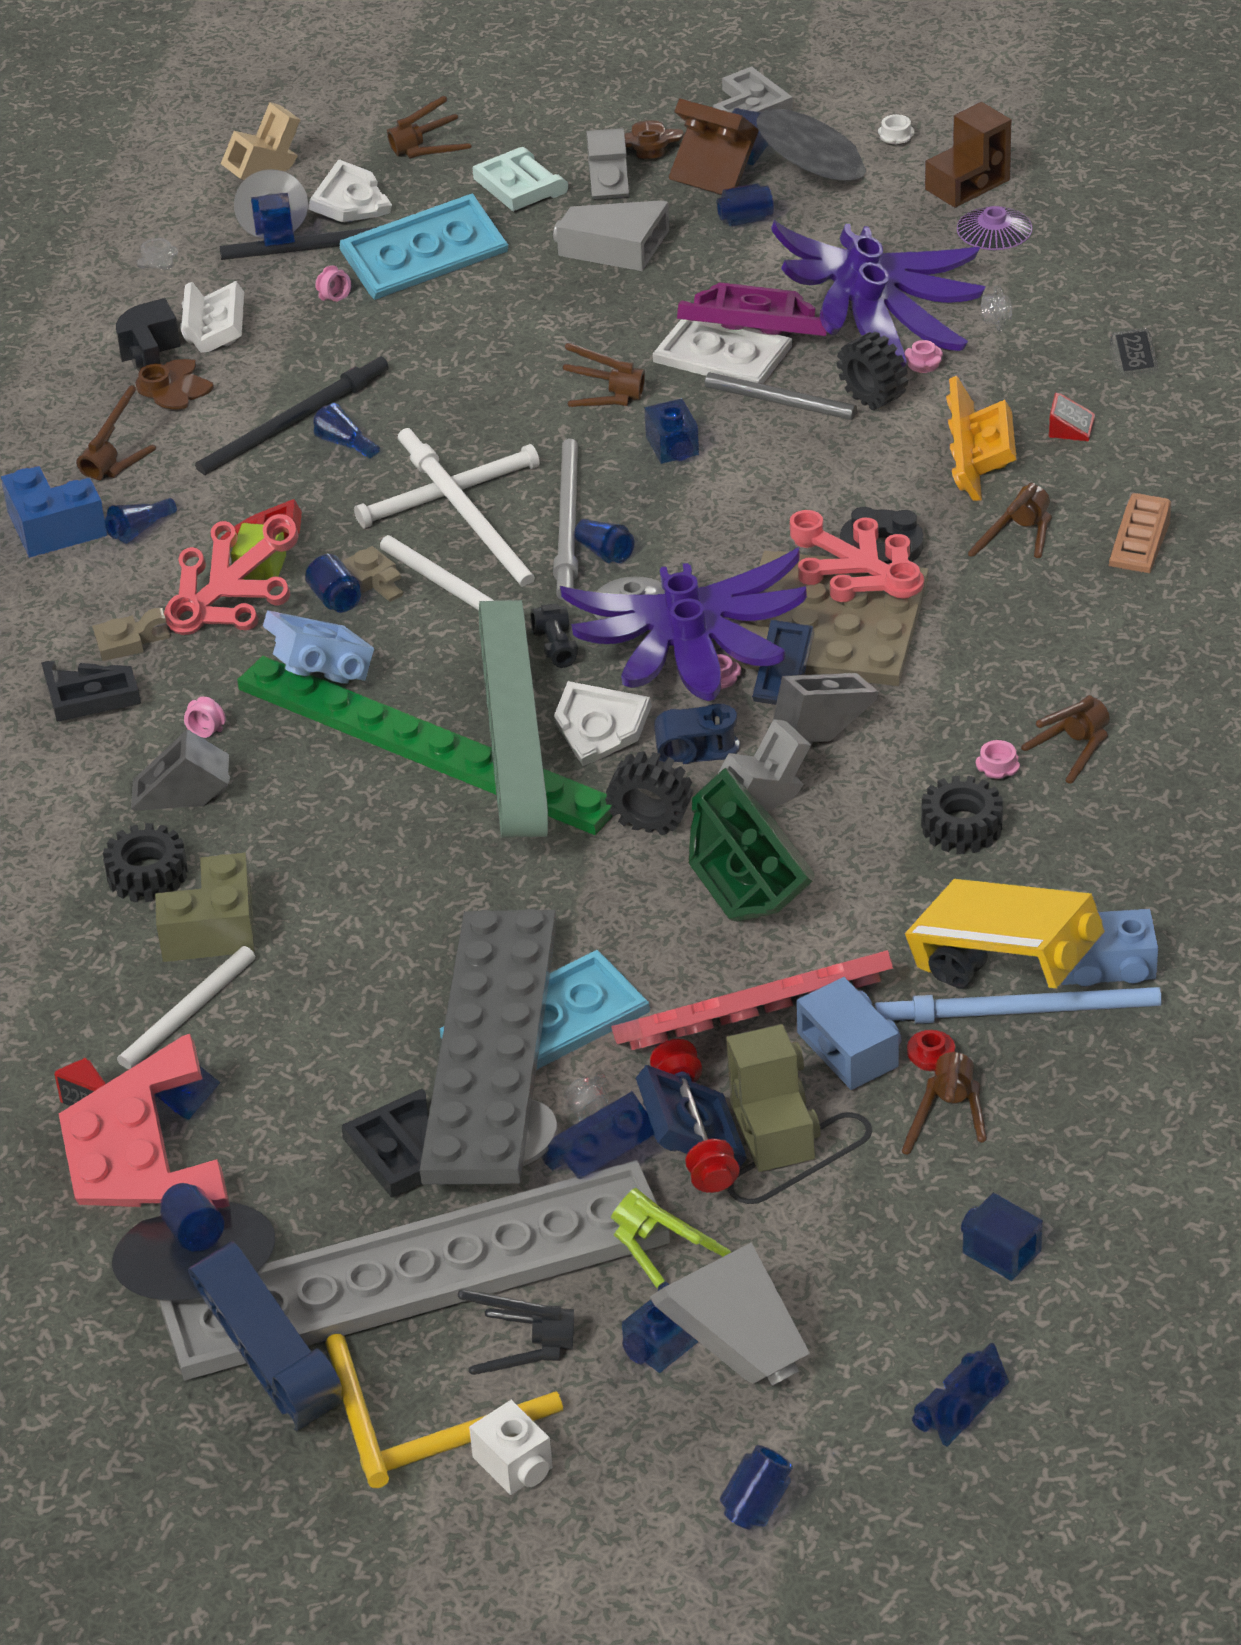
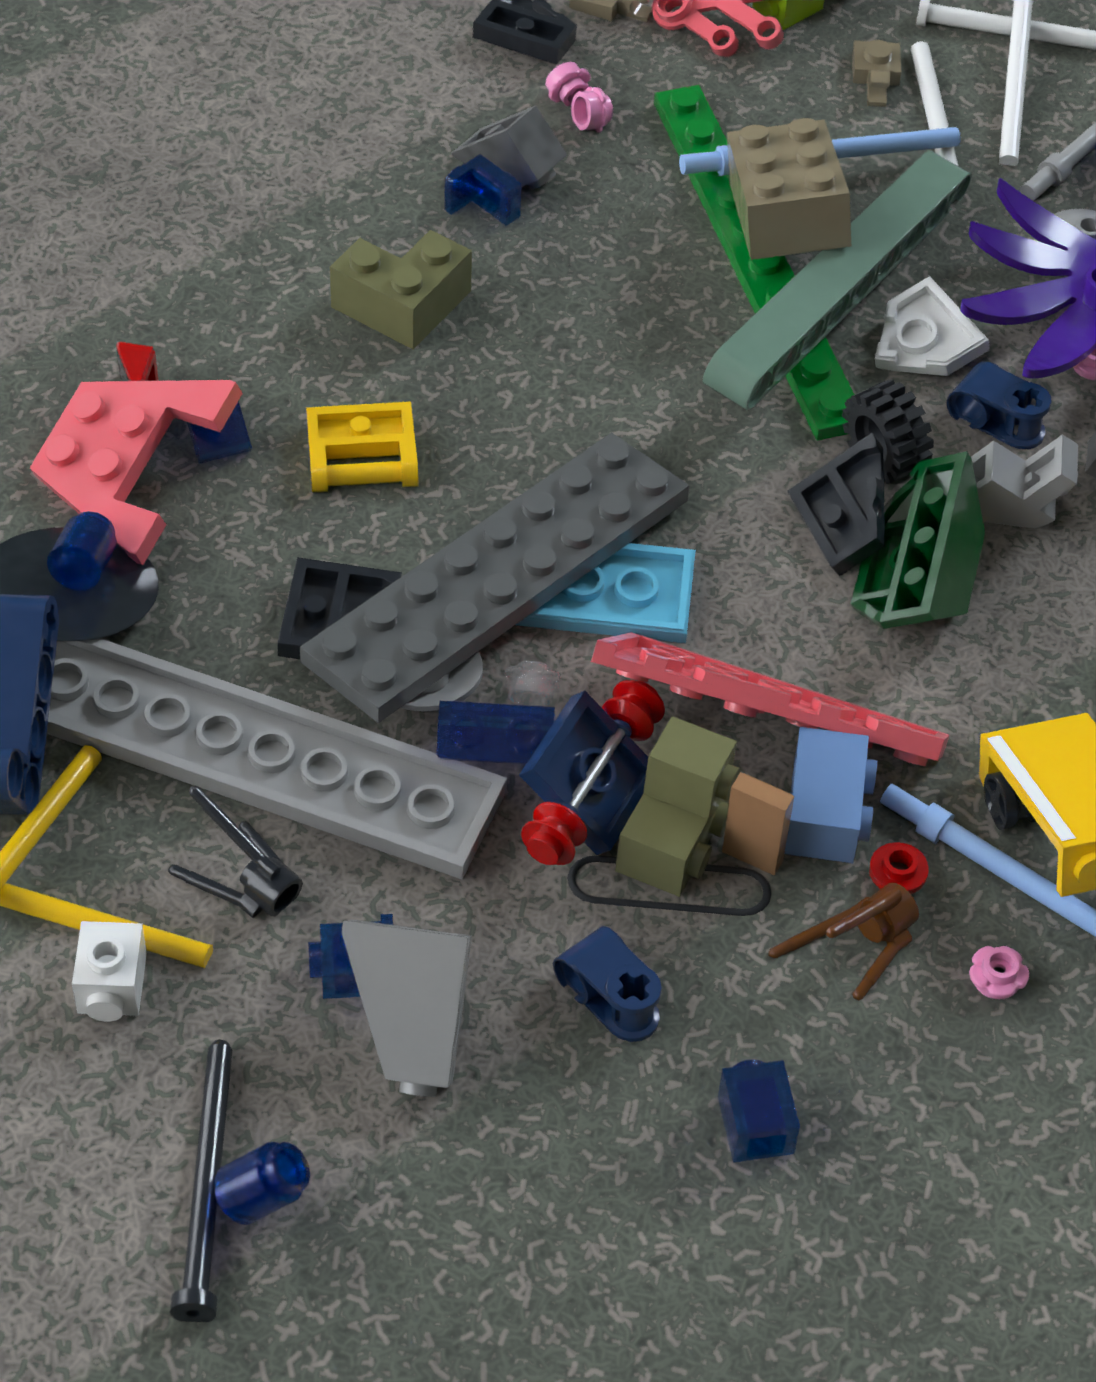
camera: 35 degrees right, 10 degrees up
(139, 846) = (401, 188): black tyre -> none
(167, 710) = (566, 81): none -> bright pink plate
(186, 1008) = (305, 360): white bar -> none
(195, 811) = (486, 186): none -> clear blue bracket
(289, 1022) = (360, 433): none -> yellow plate
(318, 646) = (740, 95): light blue plate -> none
(333, 583) = (827, 56): clear blue brick -> none
(354, 685) = (844, 148): none -> light blue bar
(427, 677) = (789, 188): none -> dark tan brick
(553, 621) = (982, 208): black bar -> none
(641, 1217) = (436, 834): lime plant -> none
(667, 858) = (846, 504): none -> black wing
(784, 1587) = (195, 1300): none -> black bar
(831, 1073) = (757, 823): none -> medium nougat tile
(832, 1228) = (612, 984): none -> dark blue piece
(967, 1392) = (571, 1243): clear blue hinge -> none
(1051, 1066) = (997, 984): none -> bright pink plate

